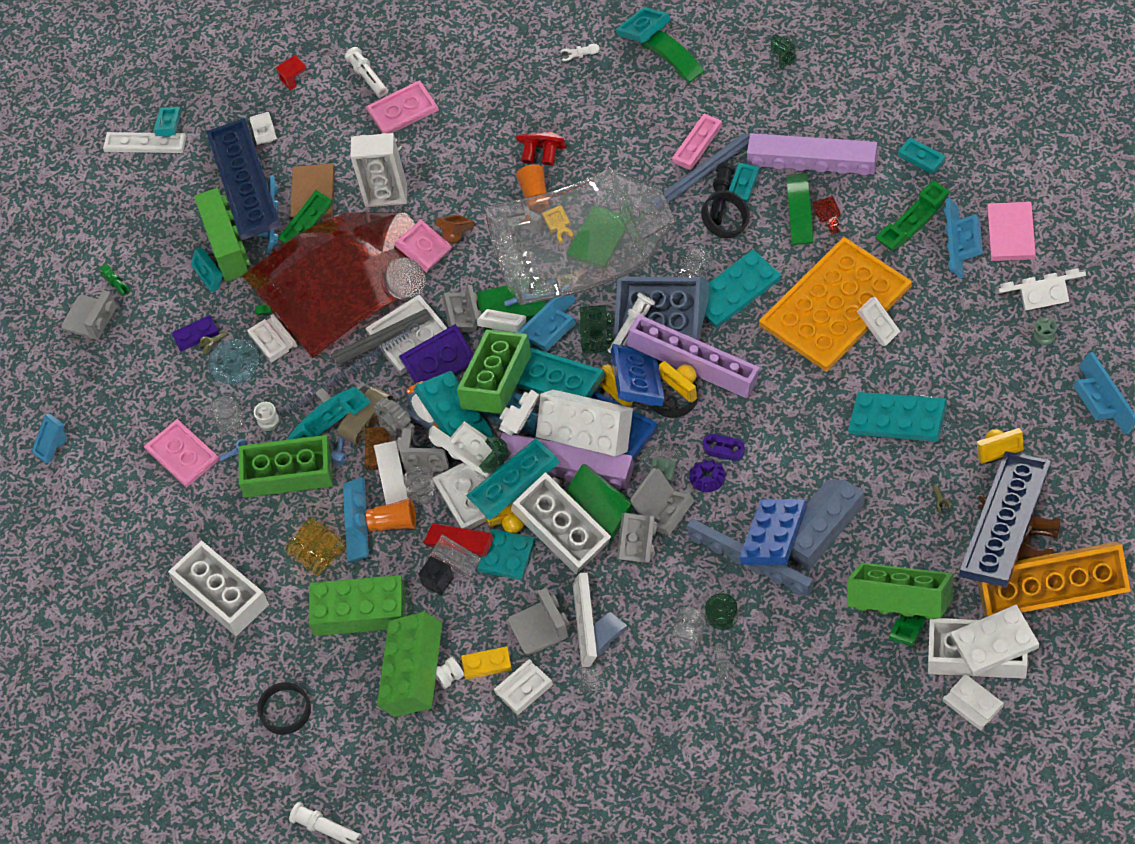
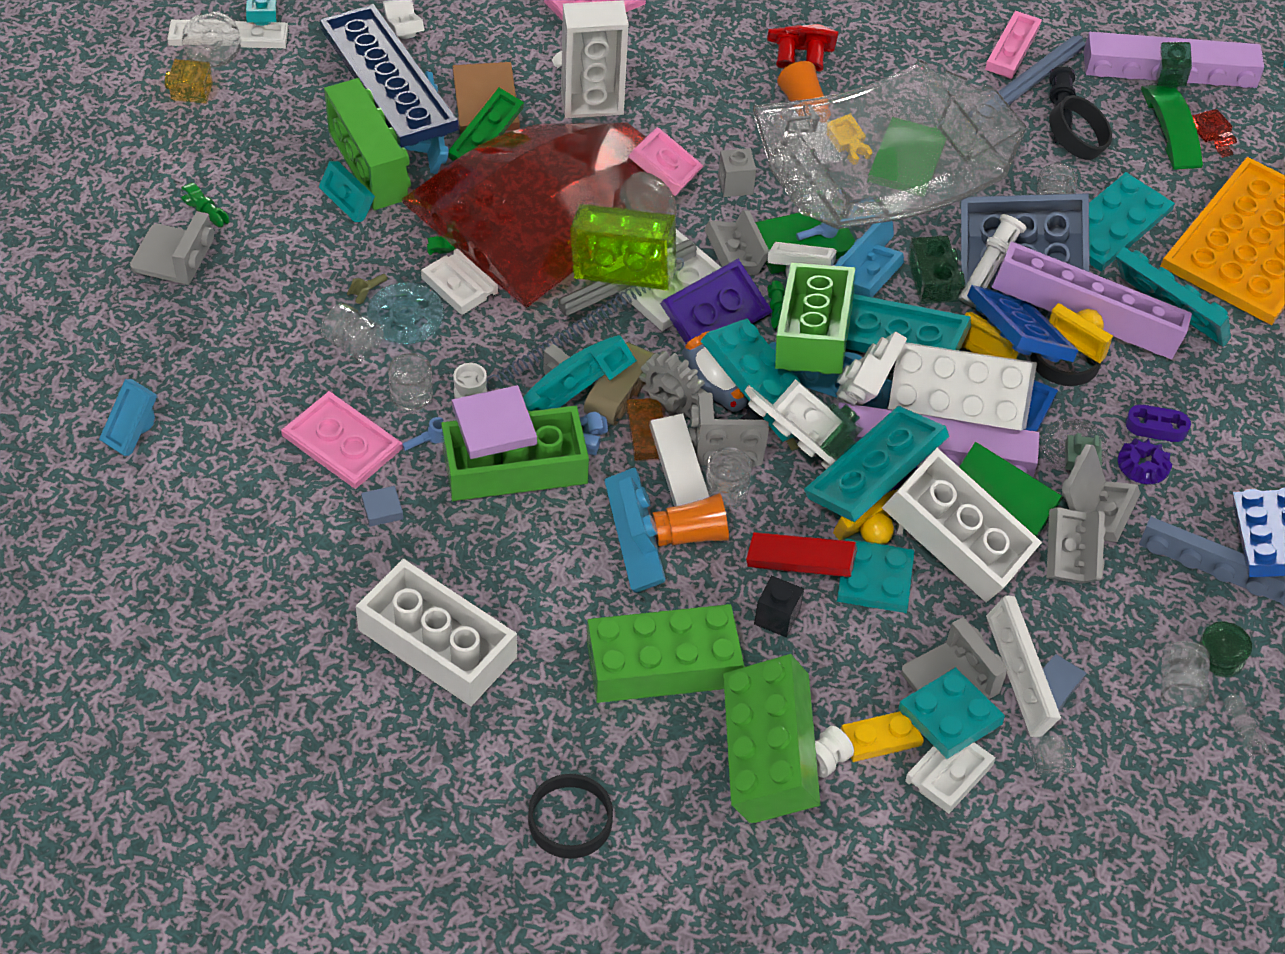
camera: 20 degrees left, 5 degrees down
(113, 183) = (189, 81): none -> clear yellow brick
(131, 149) = (211, 39): none -> clear tile
(192, 333) = (338, 275): dark purple plate -> none
(195, 377) = (351, 331): none -> clear wheel
(200, 500) = (382, 506): none -> sand blue tile
(270, 447) = (494, 422): none -> lavender tile
(315, 546) = (594, 567): clear yellow legs -> none
(342, 445) = (596, 423): none -> medium blue hand
(372, 319) = (624, 246): none -> clear neon green brick
(453, 227) = (703, 141): dark orange tile -> none
(454, 487) = (781, 483): white plate -> none
(456, 556) = (818, 582): clear tile -> none
(472, 253) = (737, 172): none -> light grey brick
(529, 650) = (951, 713): none -> teal plate
(744, 181) = (1092, 87): teal plate -> none
(752, 351) = (1161, 284): none -> teal plate
(803, 161) = (1174, 64): none -> clear green bracket

